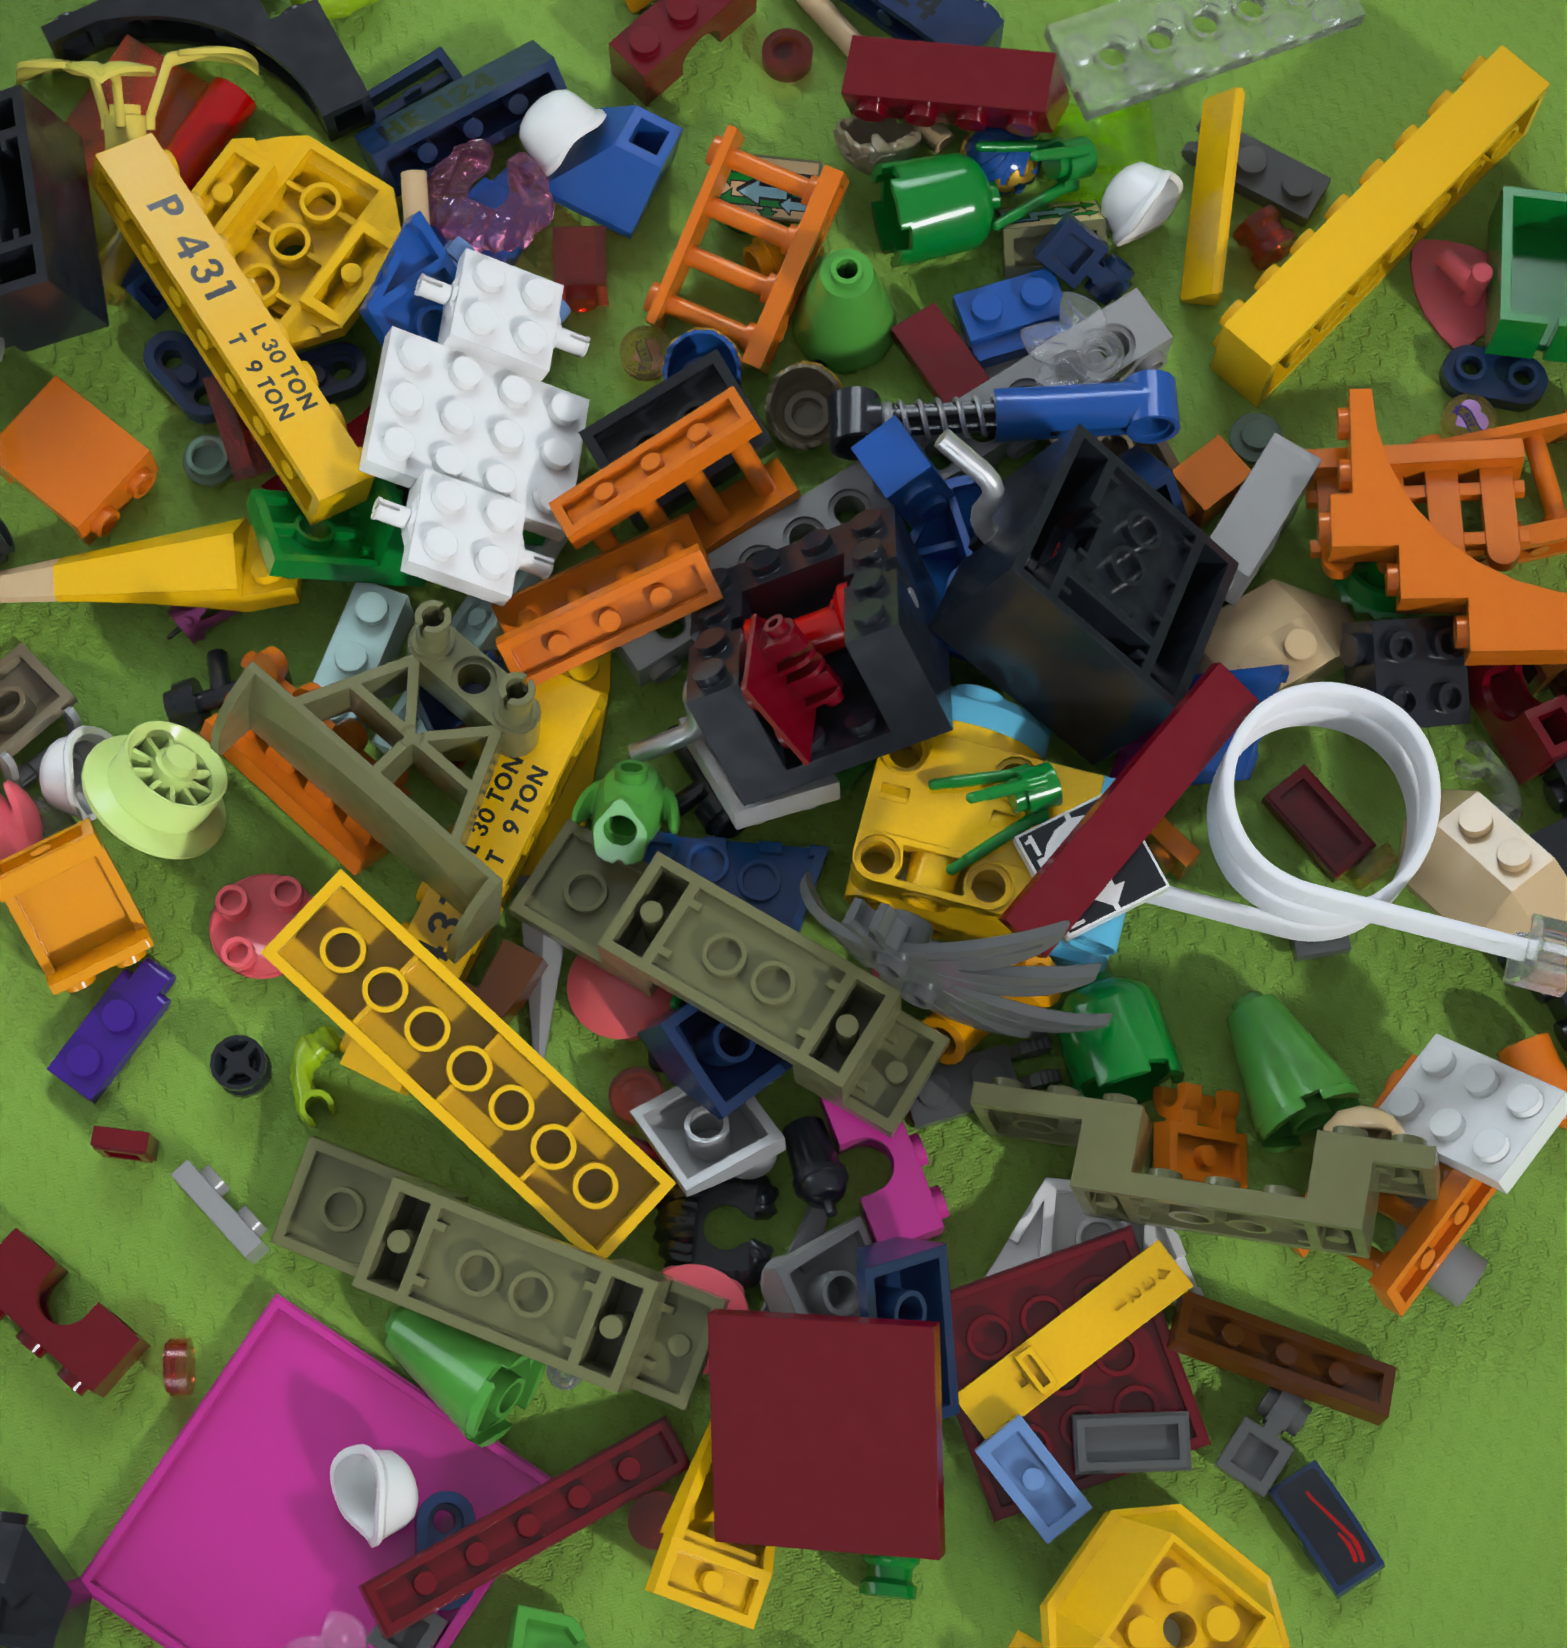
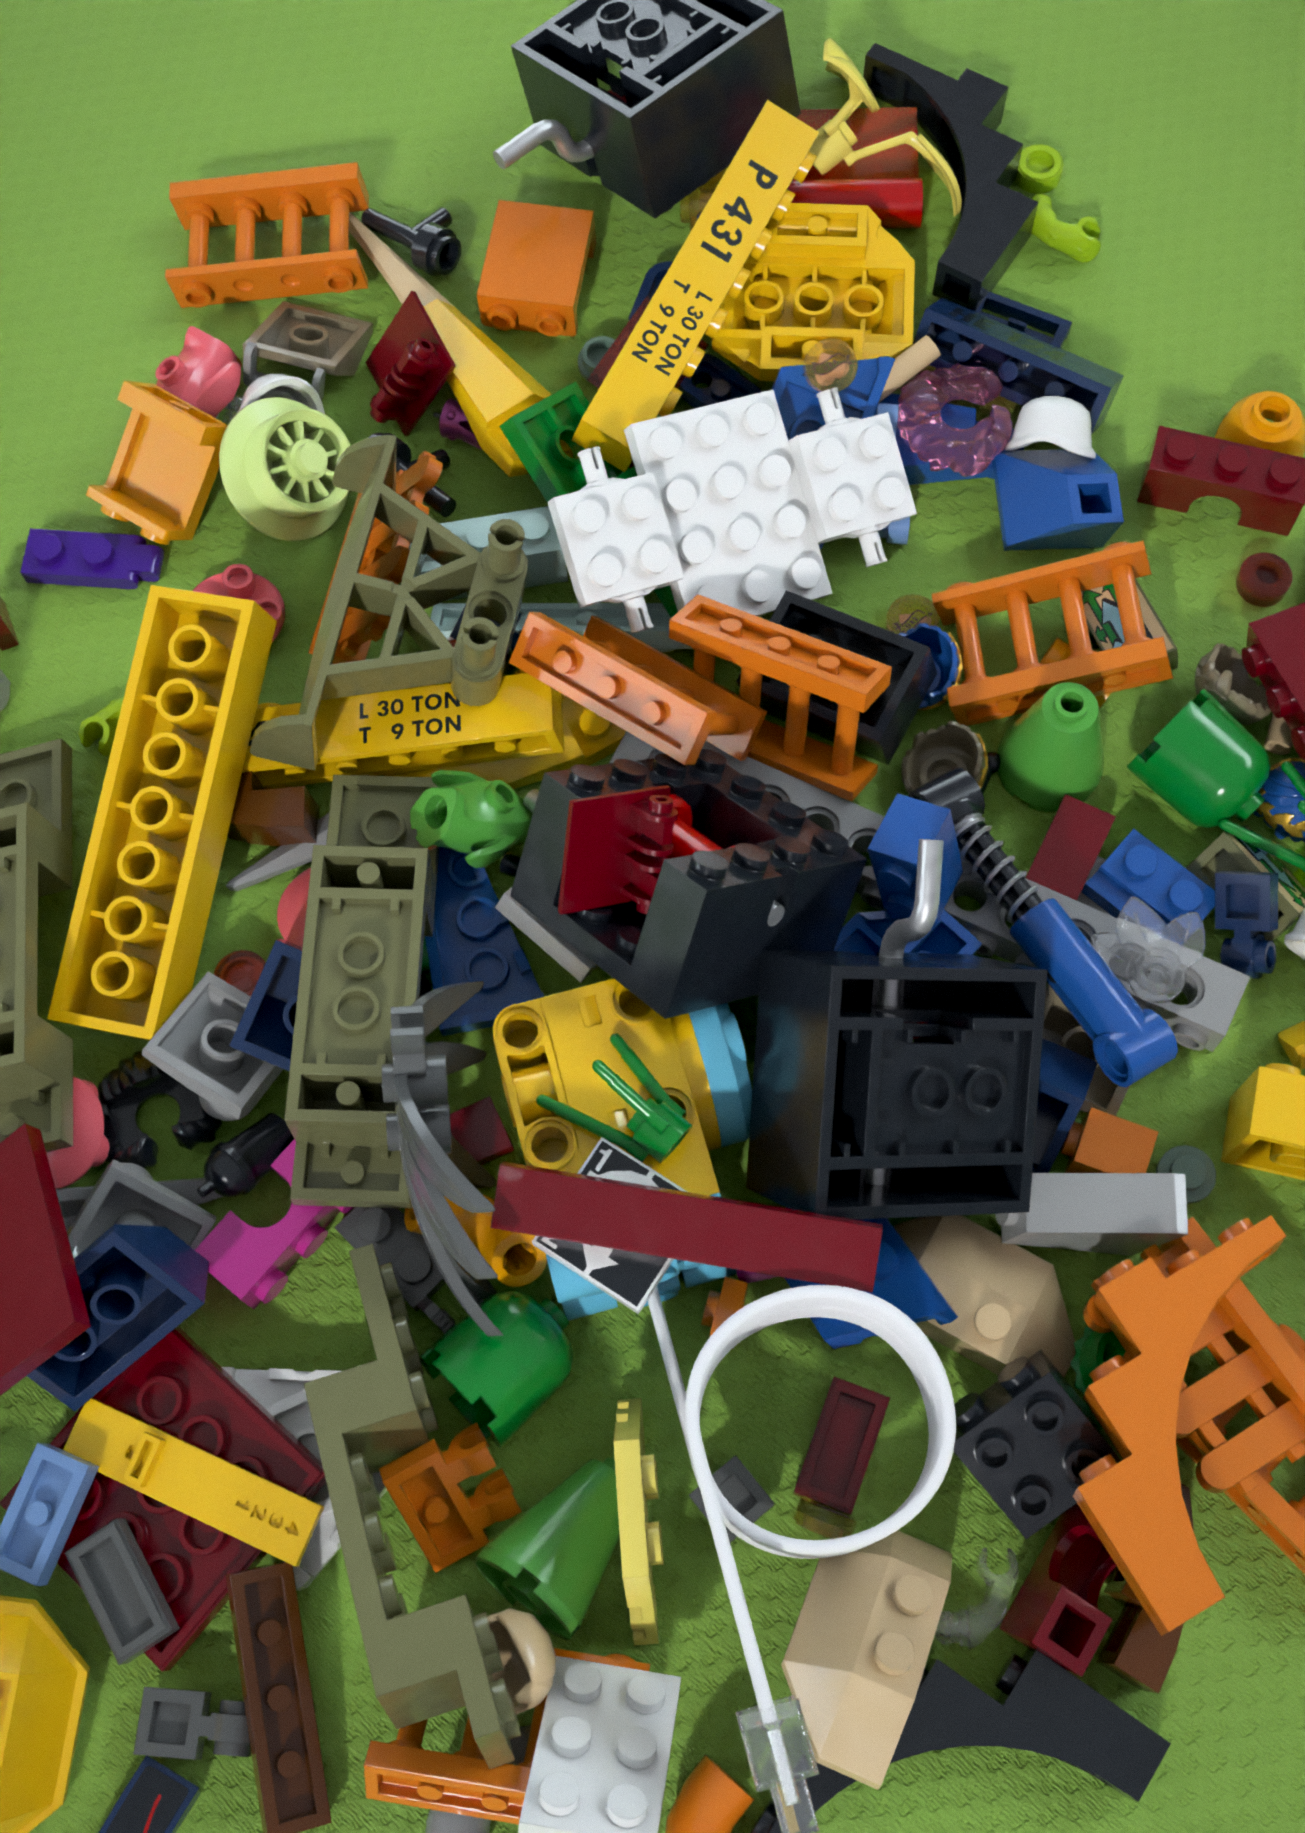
camera: 65 degrees right, 5 degrees down
(109, 630) = (408, 366): none -> dark red hinge
(232, 1058) = (94, 652): black wheel -> none
(395, 266) = (830, 365): none -> clear yellow tile
(581, 266) = (950, 526): clear red brick -> none
(1292, 982) = (639, 1538): none -> light yellow wing

